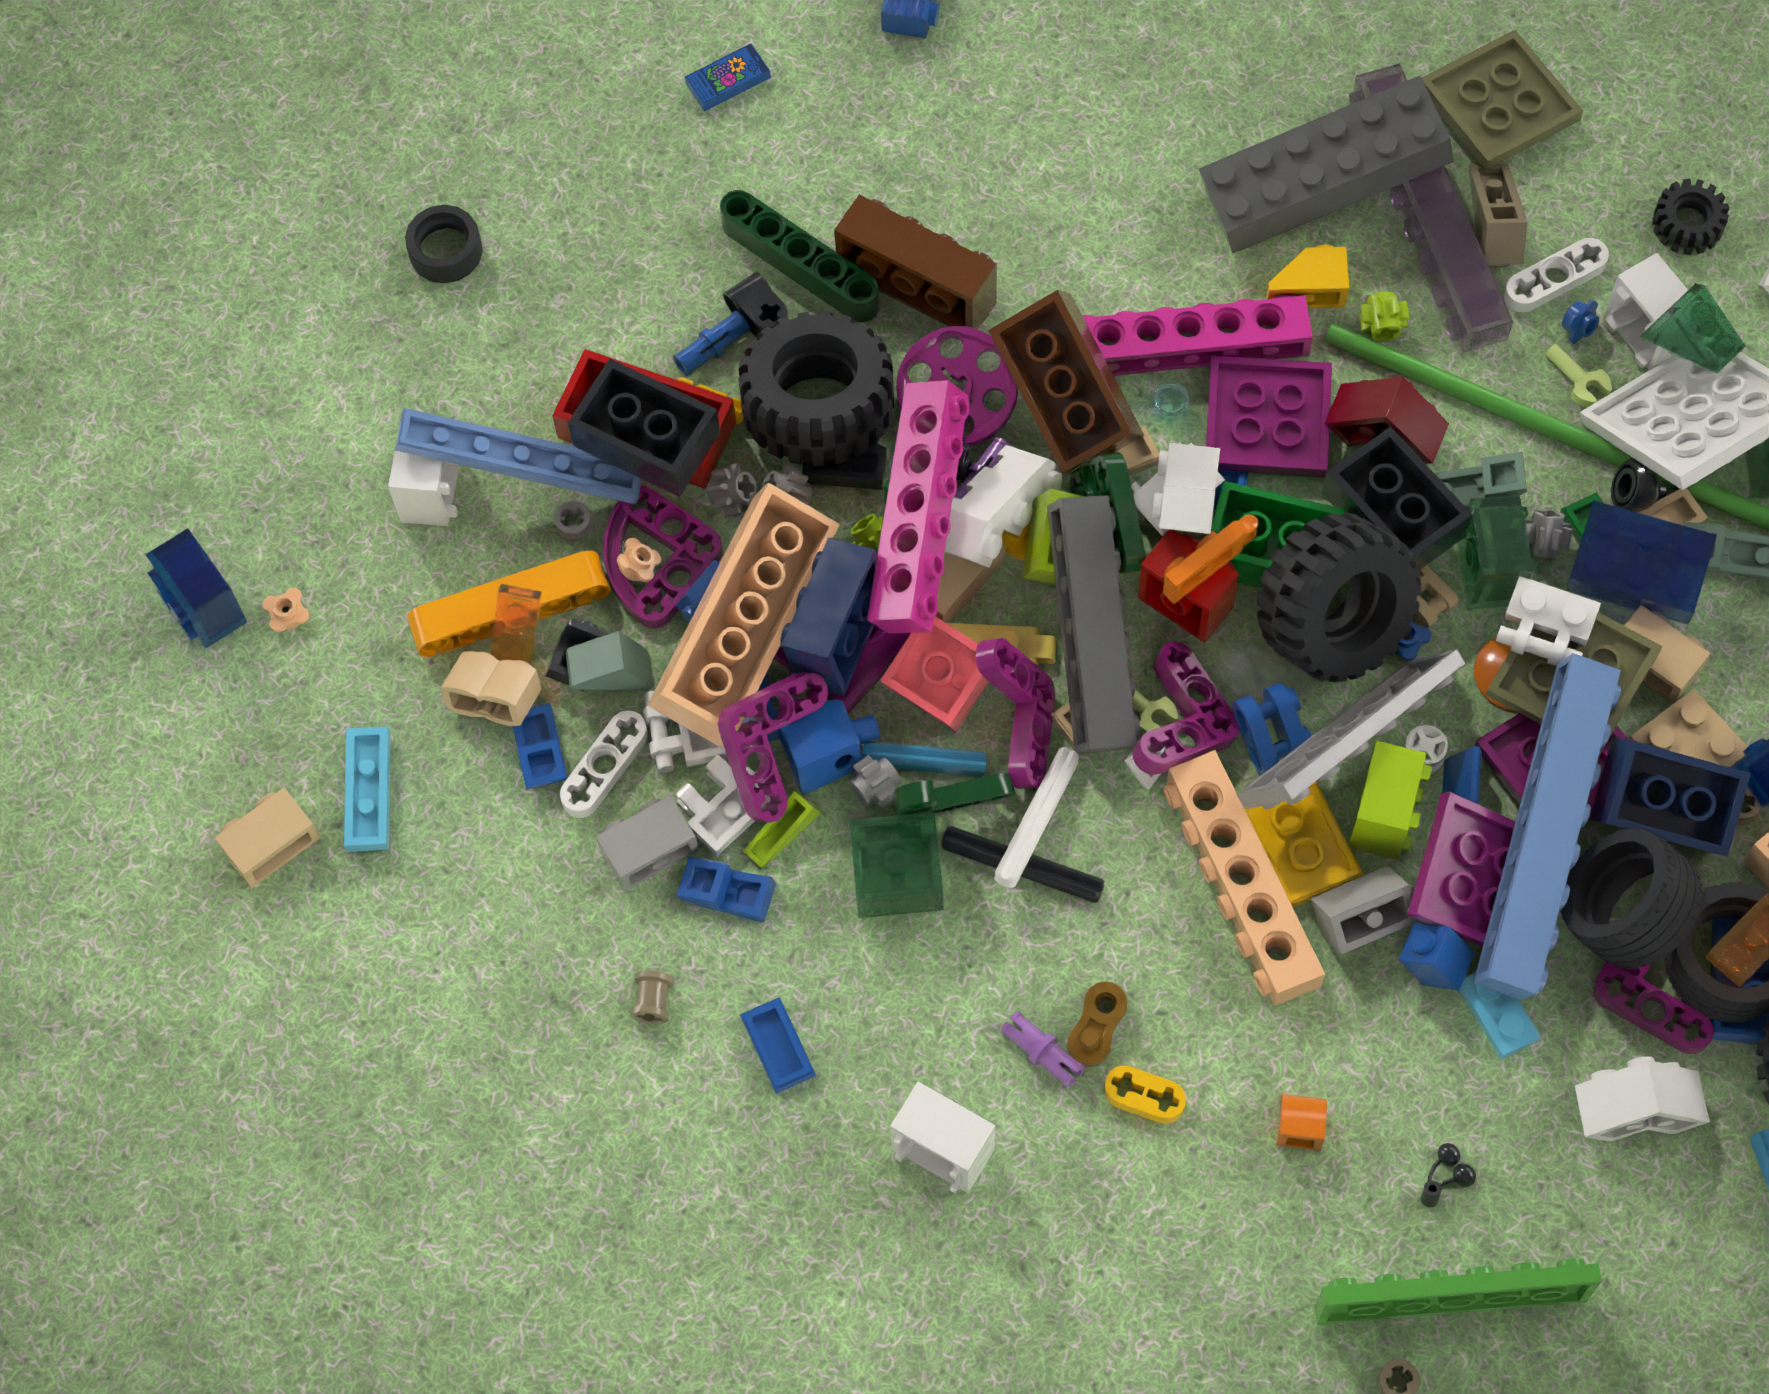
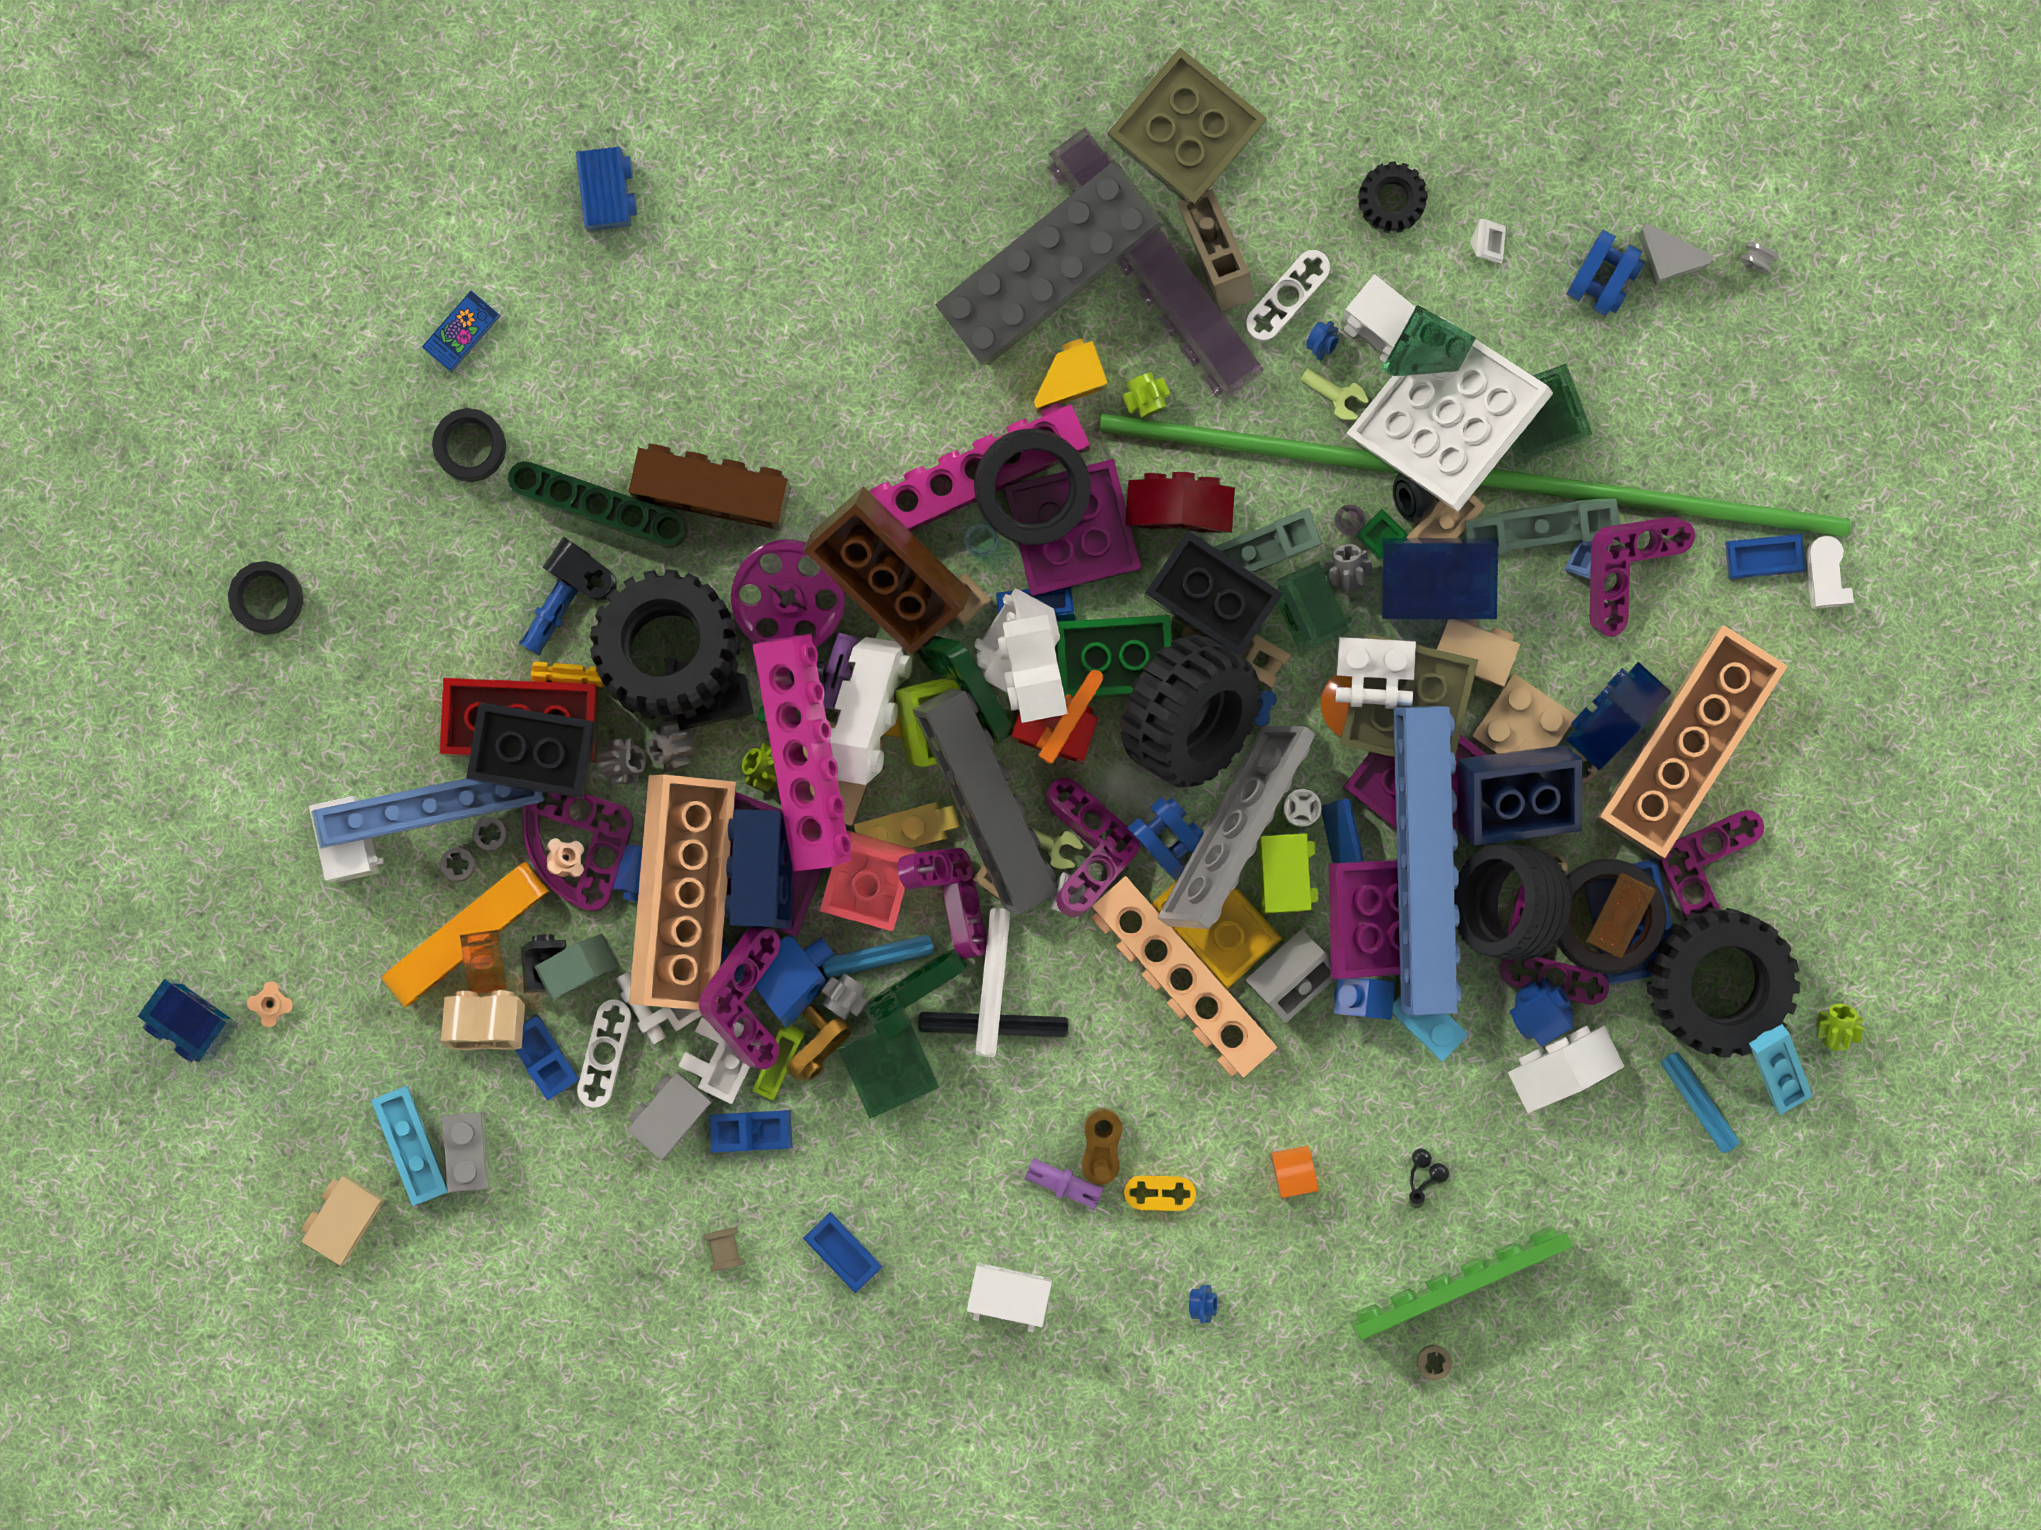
camera: 20 degrees left, 20 degrees up
(422, 809) = (466, 1152): none -> light grey brick
(522, 528) = (465, 855): none -> light grey bush
(691, 145) = (461, 417): none -> black tyre
(818, 831) = (809, 1061): none -> pearl gold piece
(1154, 1226) = (1203, 1304): none -> blue plate
(1251, 300) = (1060, 523): none -> black tyre
(1565, 484) = (1345, 525): none -> hinge
(1631, 1031) = (1542, 1011): none -> blue brick

